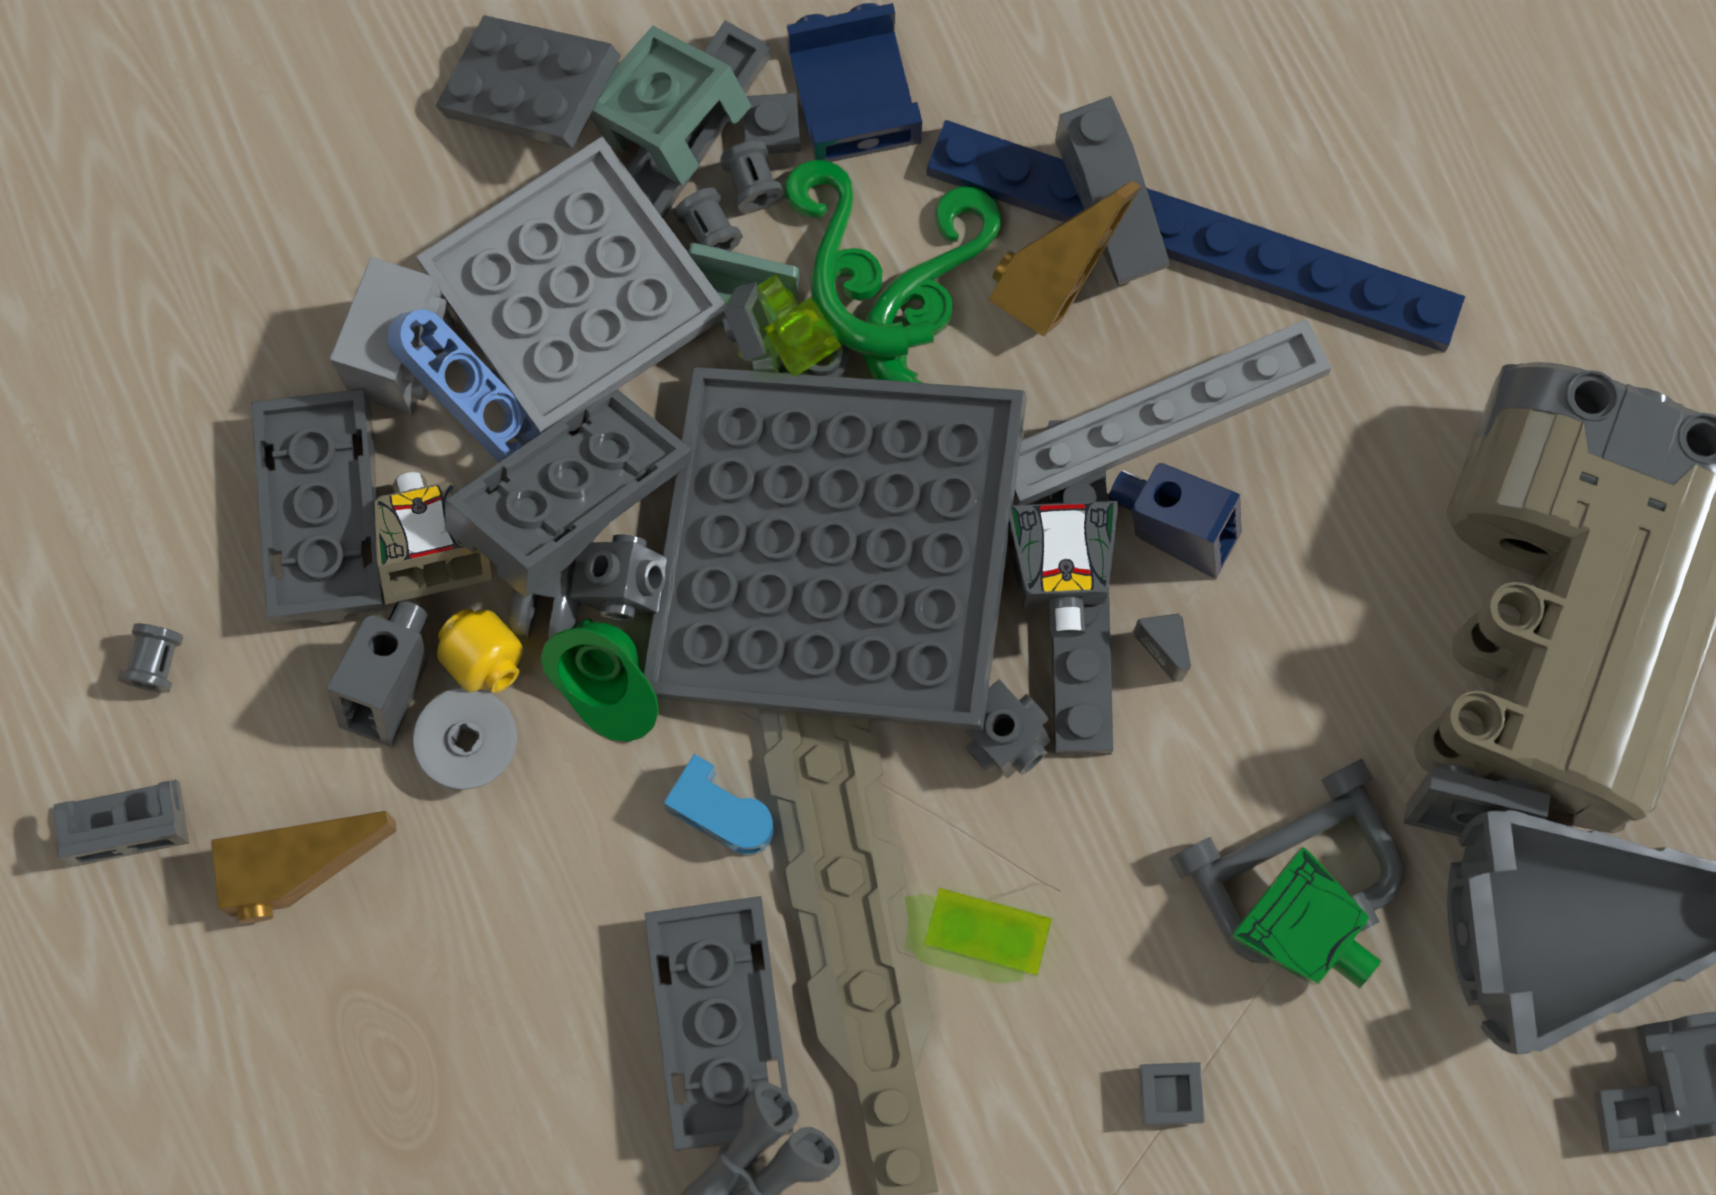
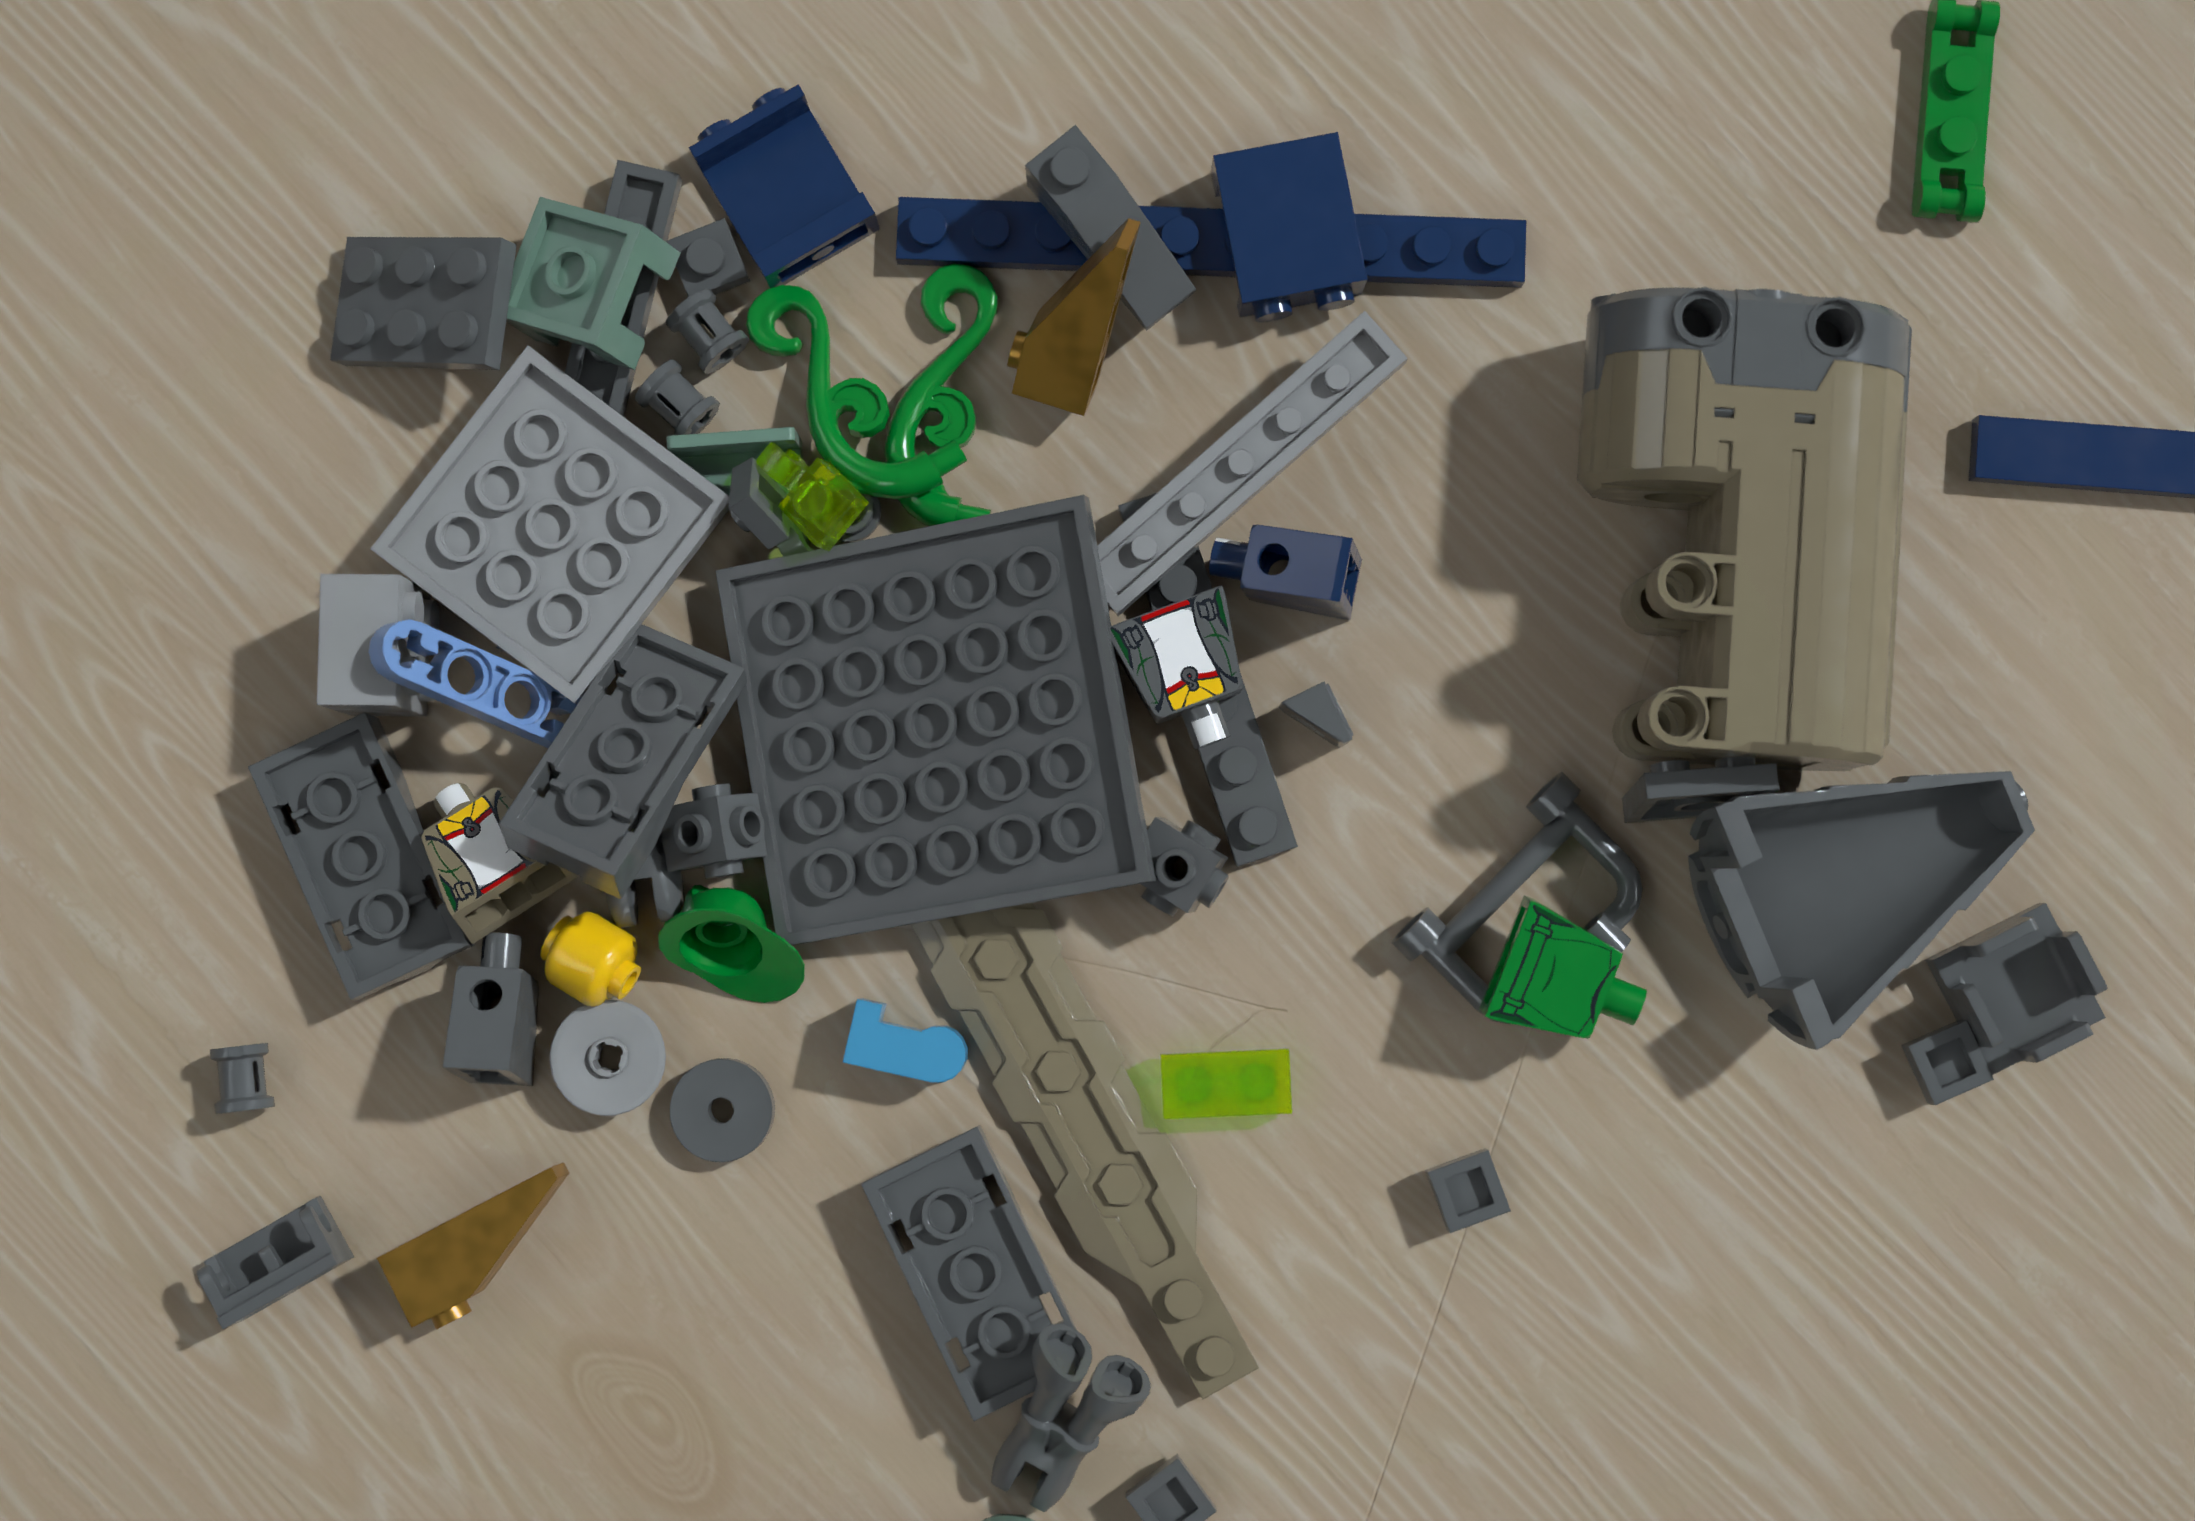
camera: 15 degrees left, 10 degrees up
(540, 791) = (693, 1116): none -> dark grey piece
(1264, 240) = (1290, 226): none -> dark blue panel

